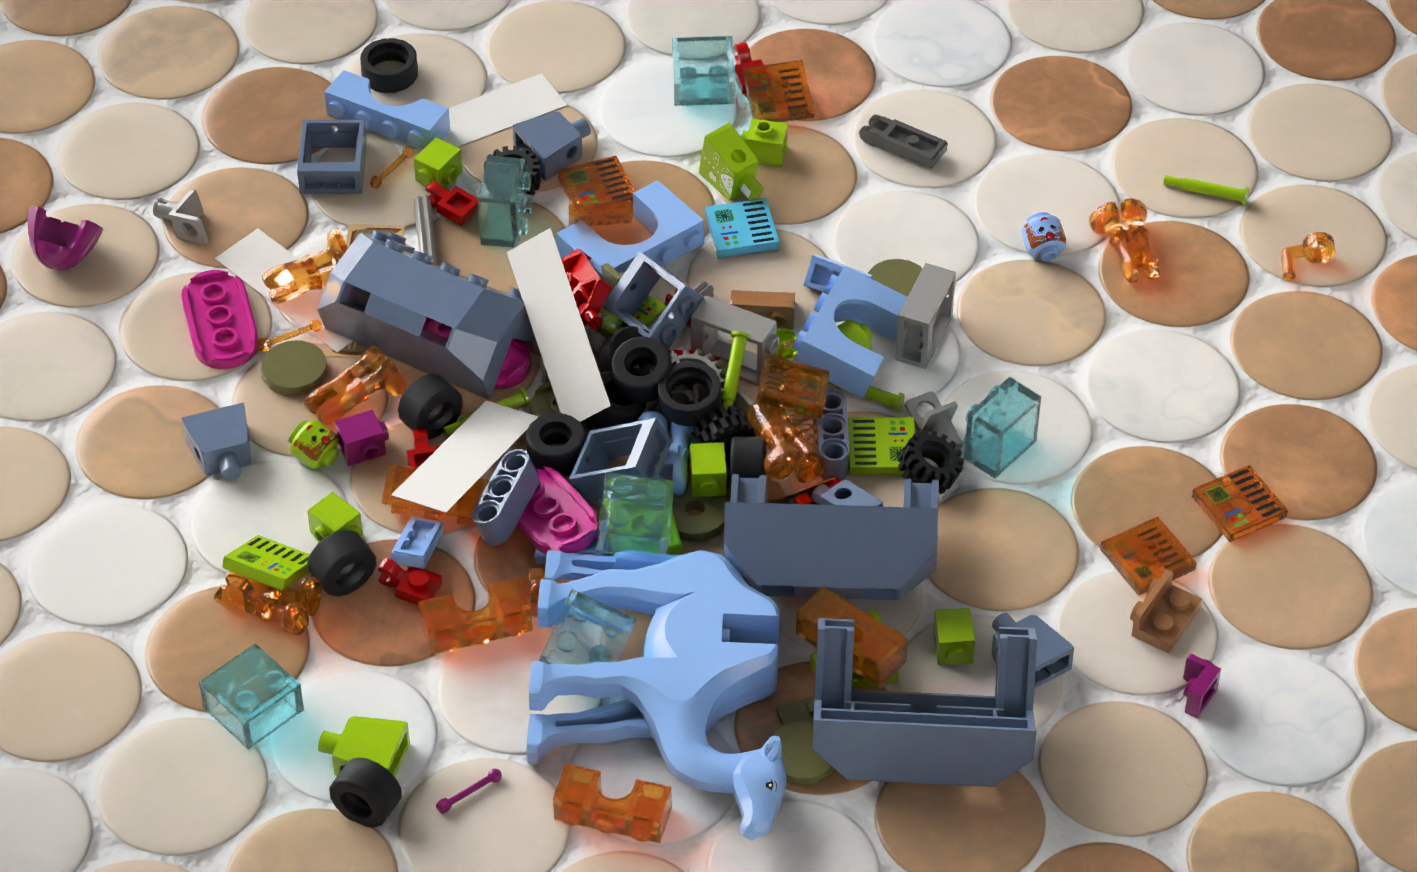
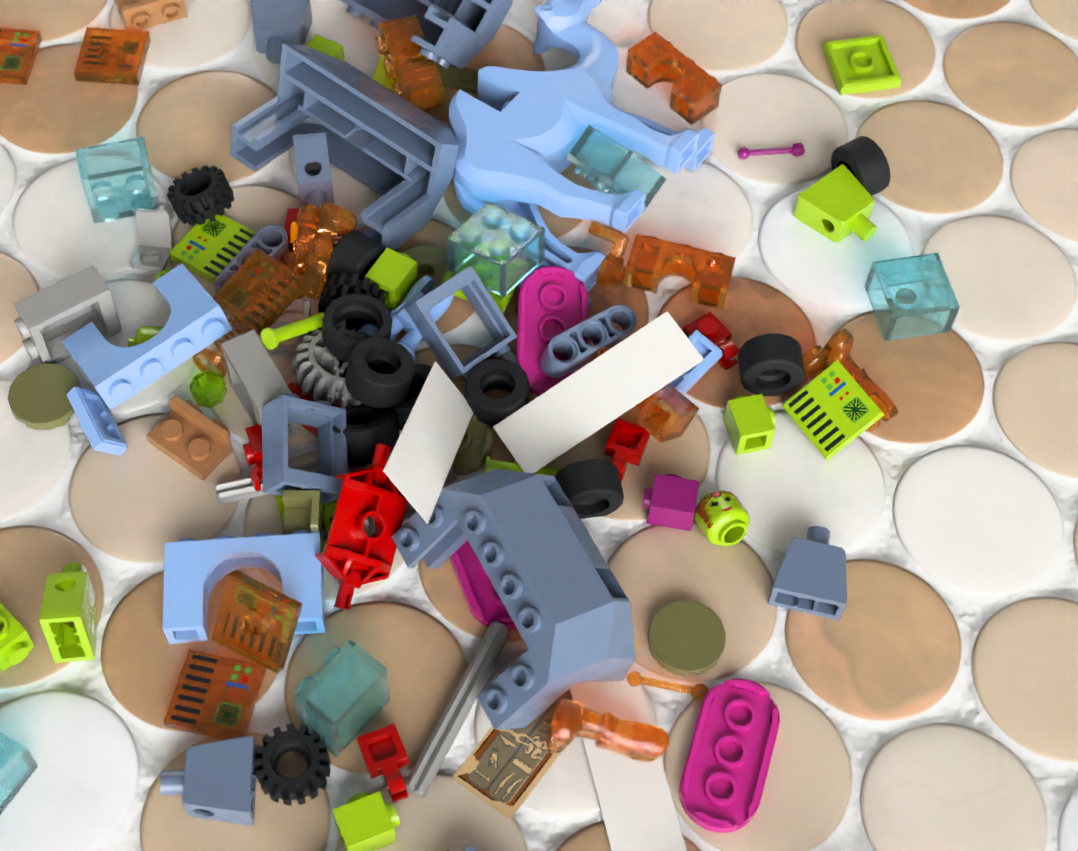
camera: 150 degrees left, 10 degrees up
(347, 390) = (653, 562): clear orange piece -> none
(742, 228) = (122, 549): medium azure tile -> none
(801, 763) = (508, 49): olive tile -> none

